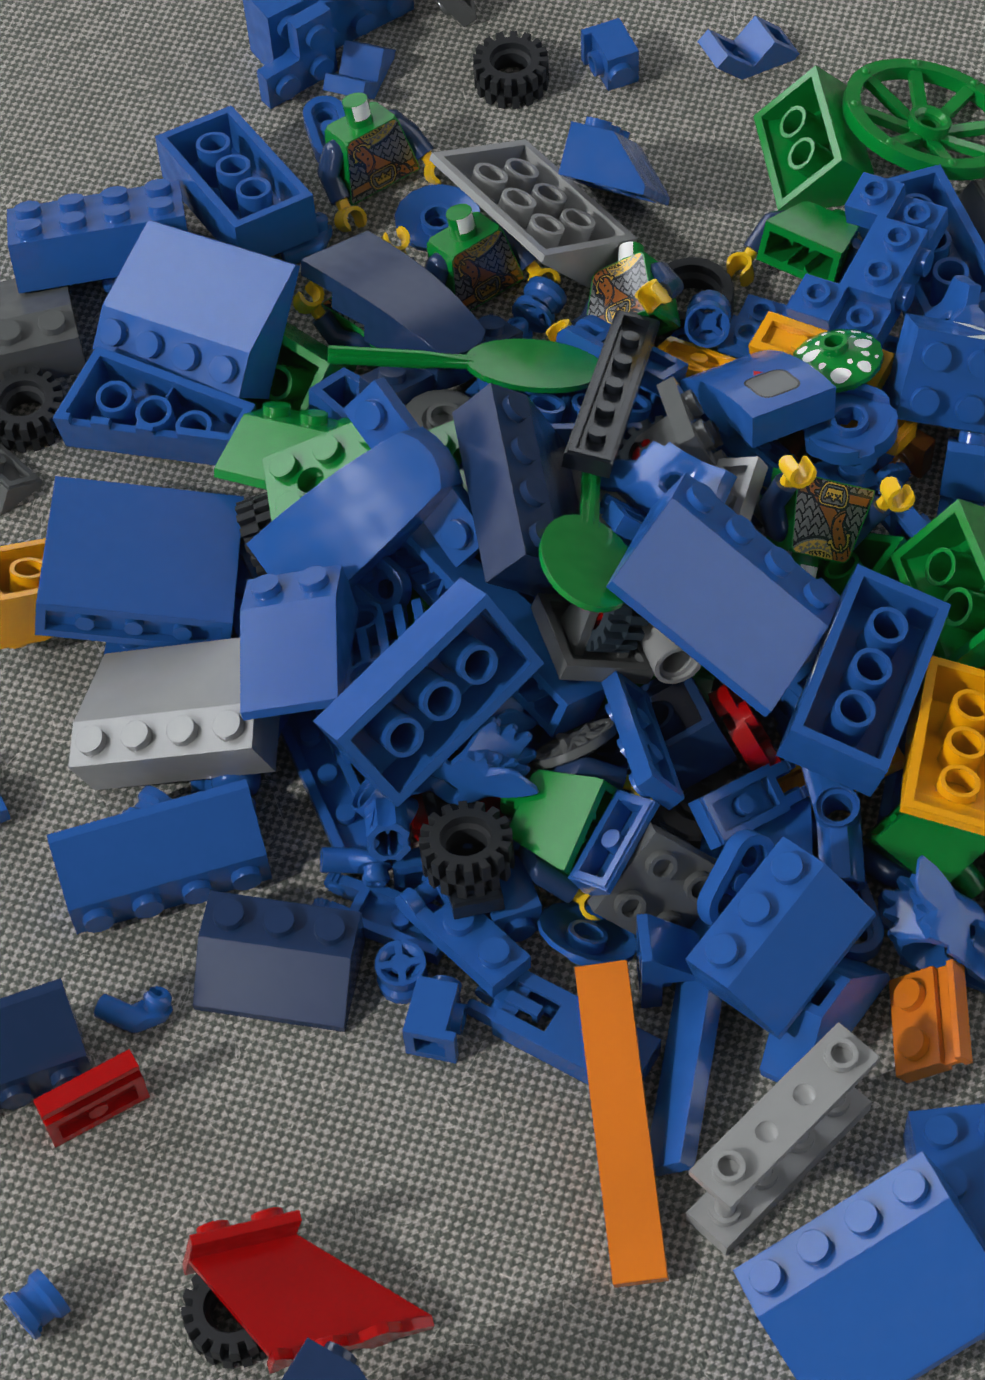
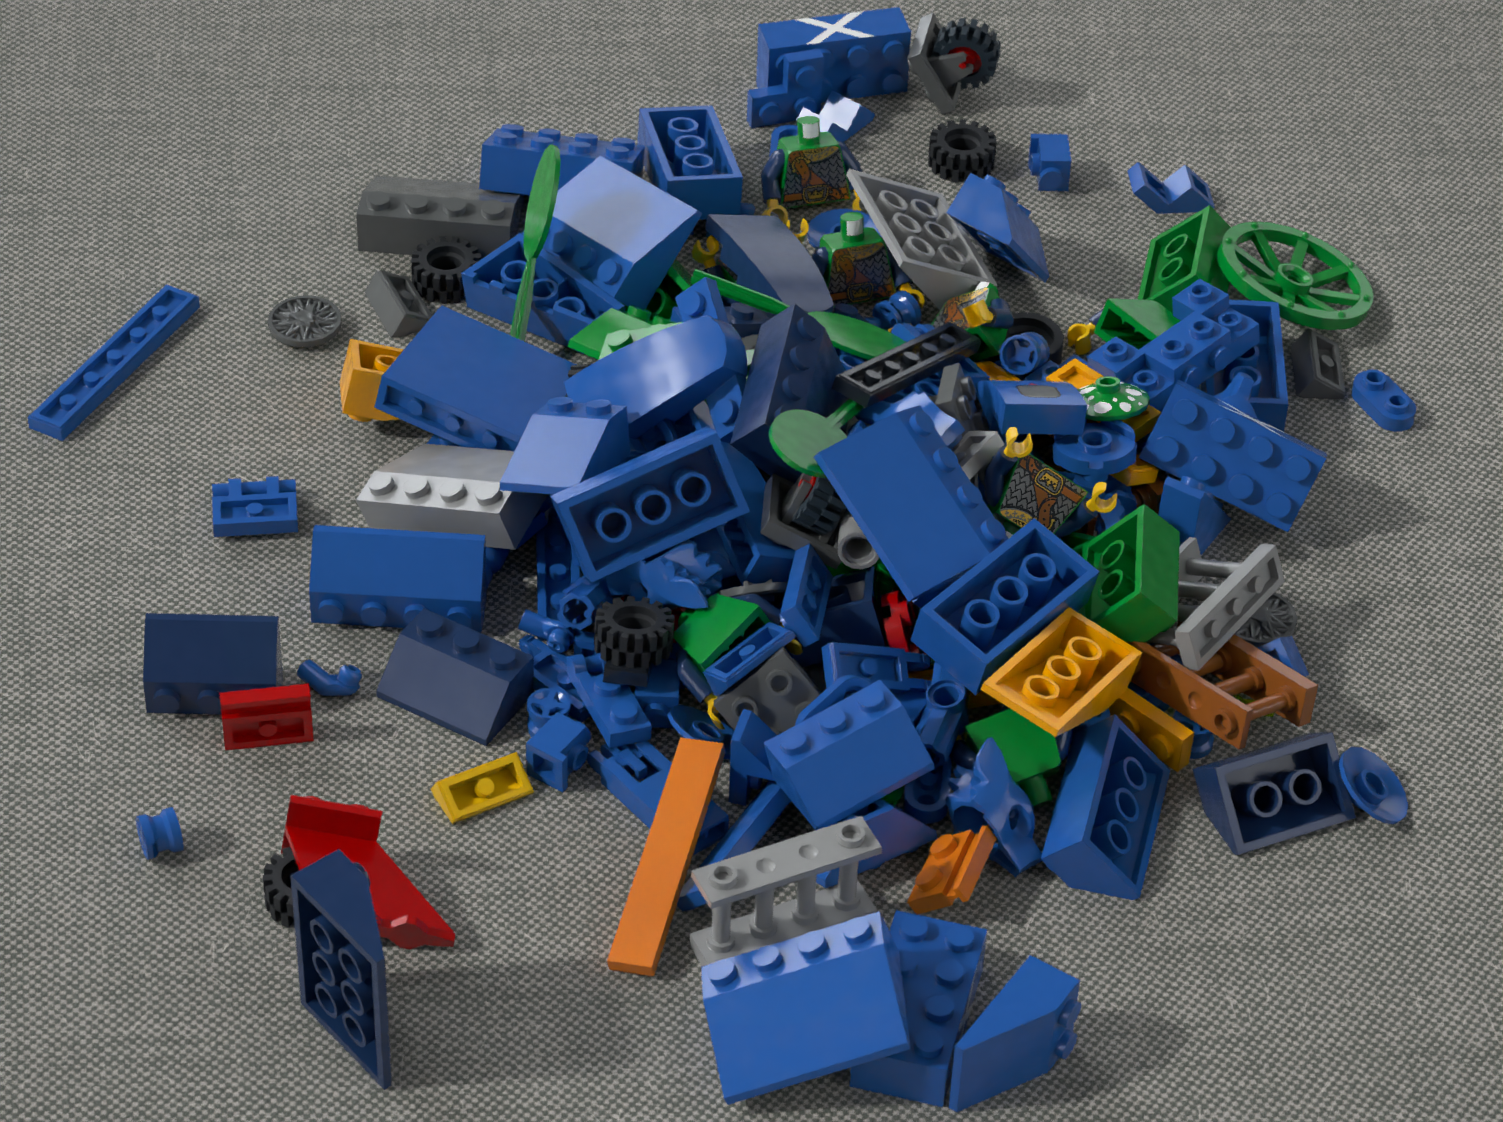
camera: 15 degrees right, 15 degrees down
(126, 344) = (536, 229): none -> green piece
(369, 1095) = (482, 788): none -> yellow slope

